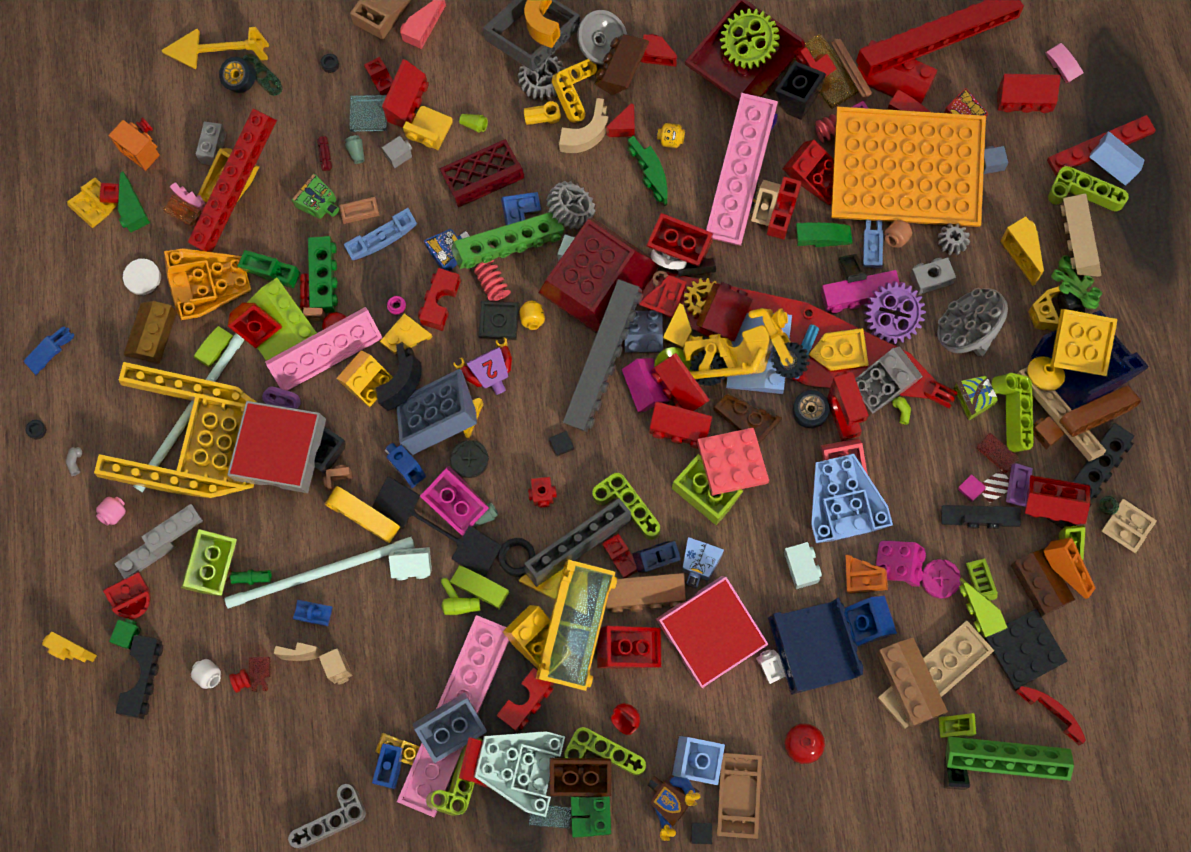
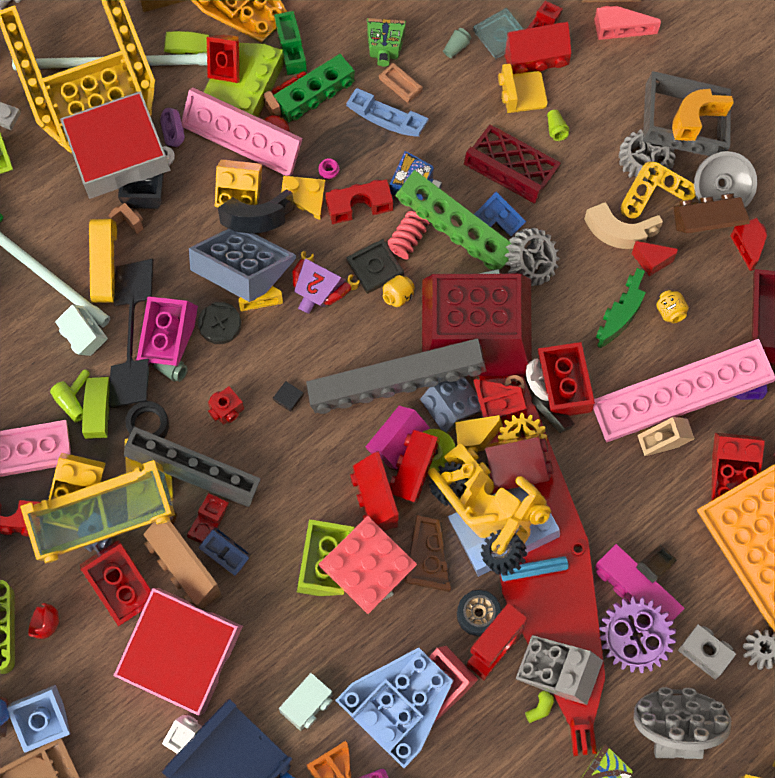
camera: 50 degrees right, 5 degrees down
(324, 153) = (434, 21): dark red axle -> none
(397, 151) = (479, 78): light grey brick -> none
(405, 464) = (173, 268): blue torso -> none
(540, 114) = (607, 178): yellow piece -> none
(637, 504) = (262, 499): lime beam -> none
(700, 561) = (248, 597): light blue torso -> none
(784, 208) = (661, 462): red arch -> none
(823, 234) = (673, 514): green slope -> none
(841, 350) = (561, 605): yellow tile -> none
(873, 245) = (697, 571): medium blue hinge -> none
(898, 234) = (727, 588): nougat head -> none

